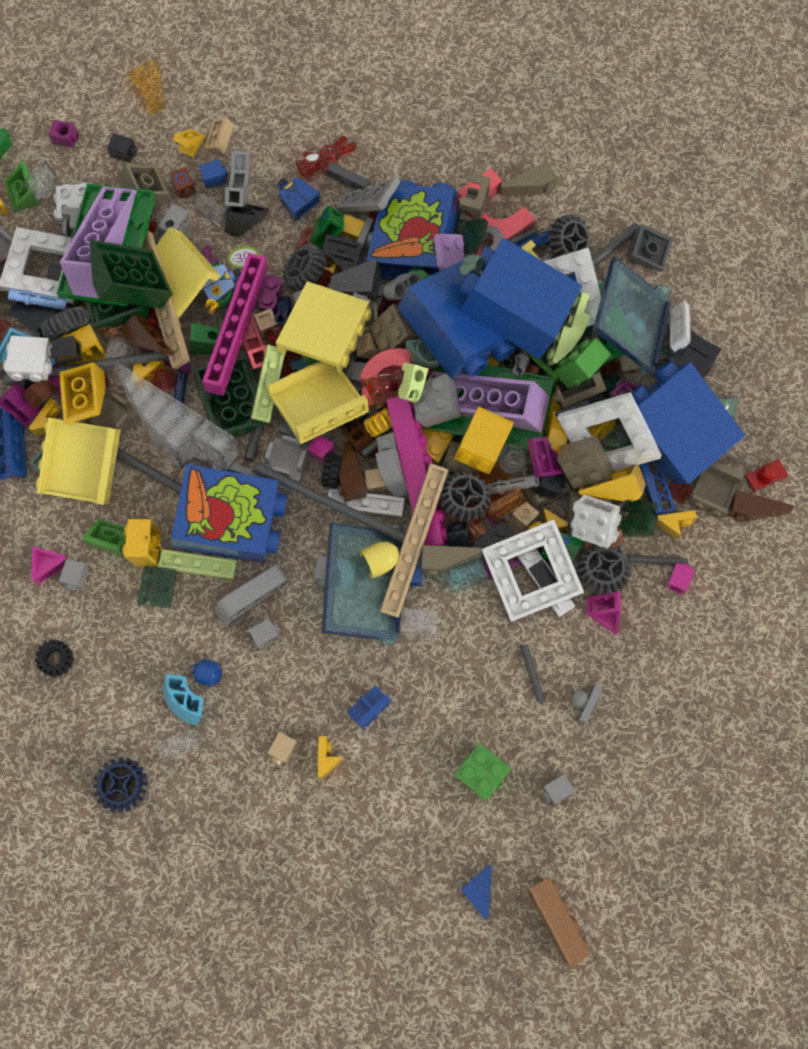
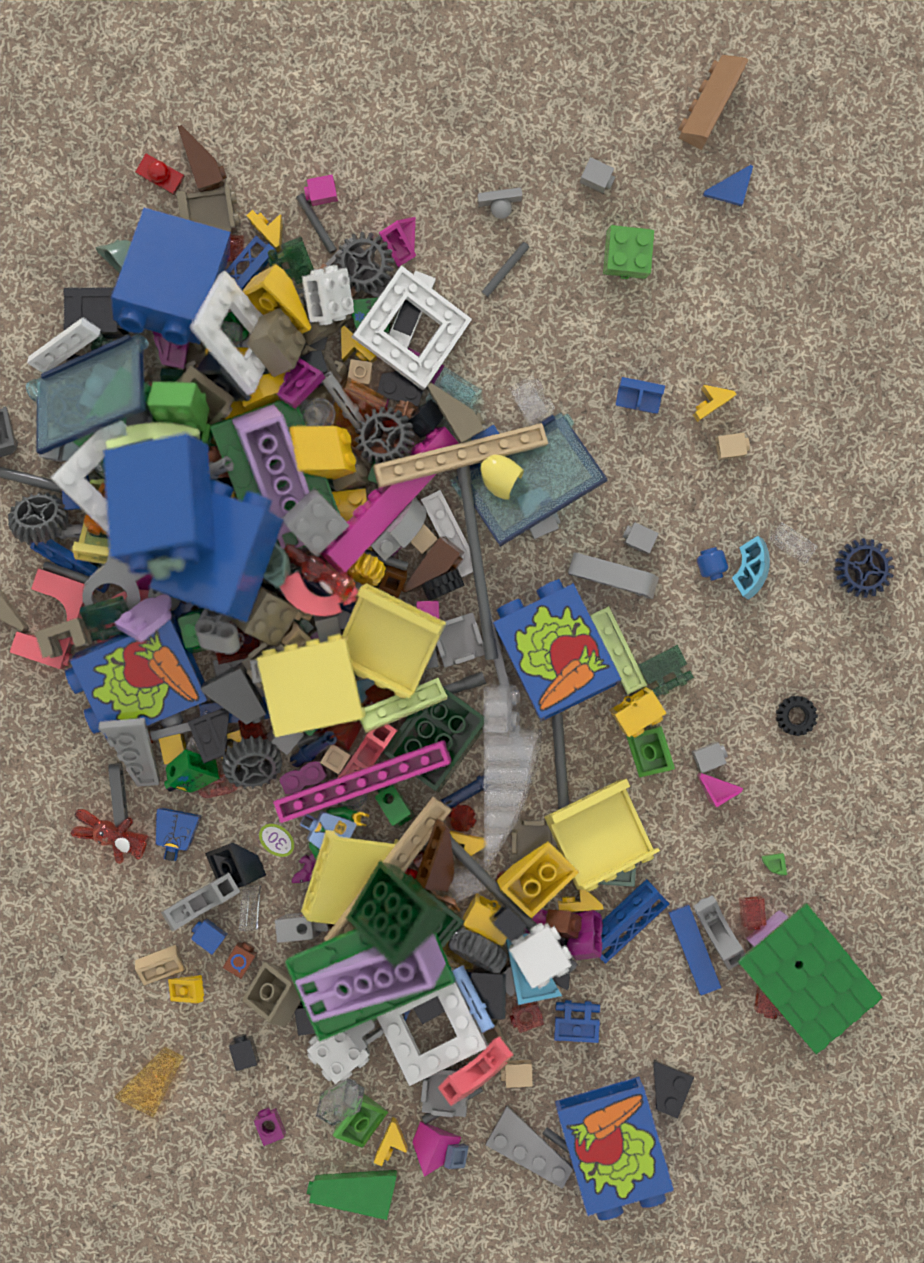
camera: 130 degrees left, 15 degrees up
(412, 382) = (315, 551): yellowish green leg -> none

